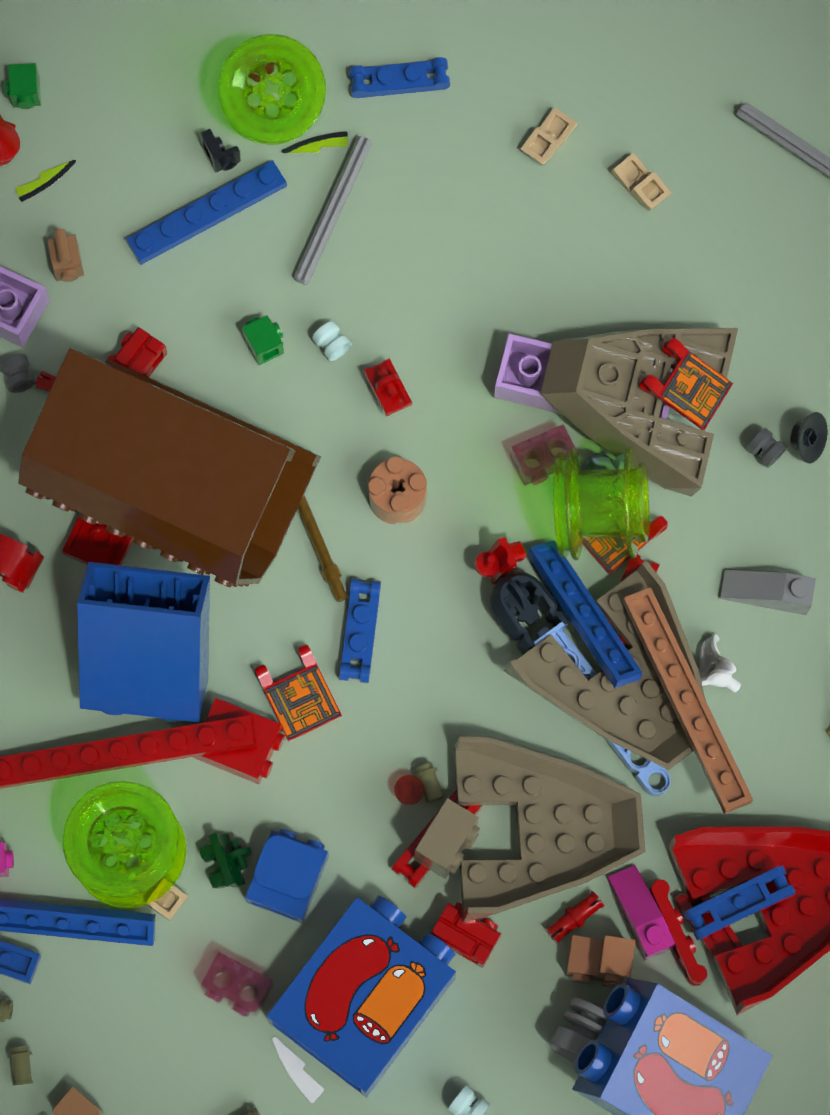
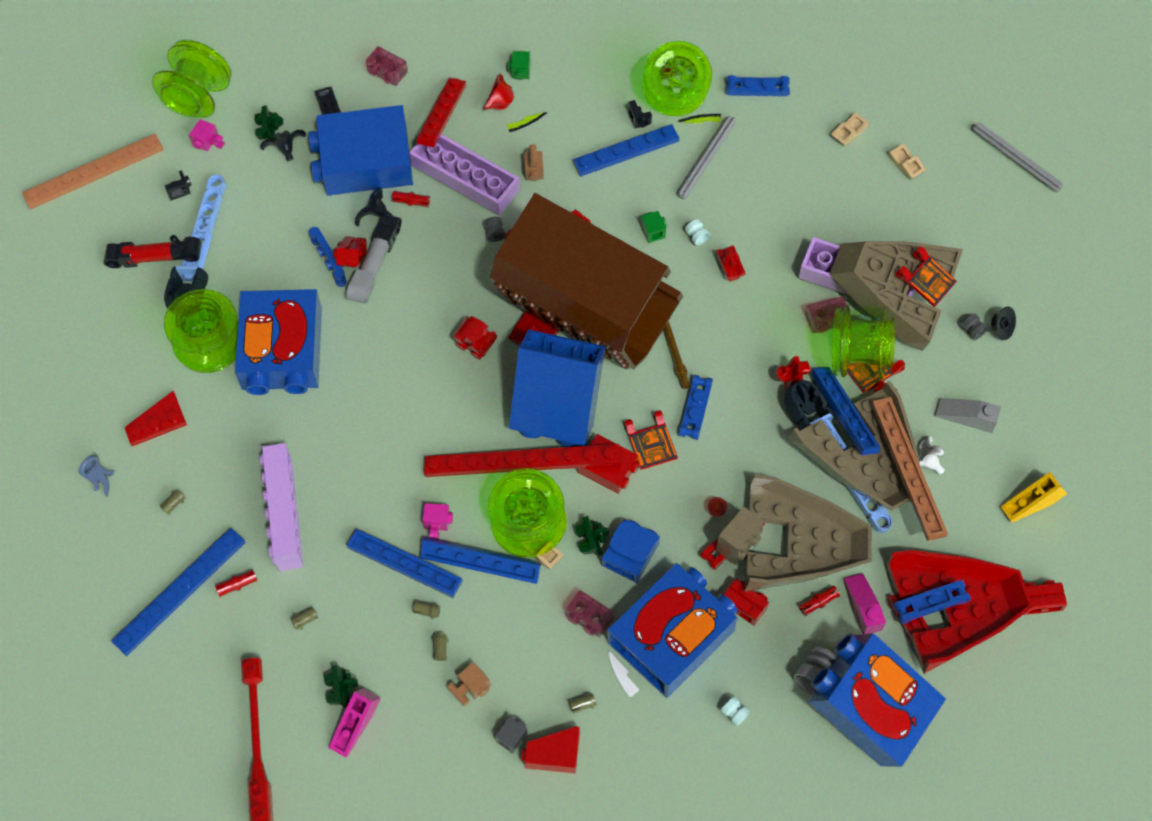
camera: 10 degrees right, 10 degrees down
(397, 506) = (730, 325): nougat brick -> none
(432, 788) = (732, 509): olive pin -> none
(600, 960) = (833, 627): nougat brick -> none
(684, 946) = (891, 627): red plate -> none

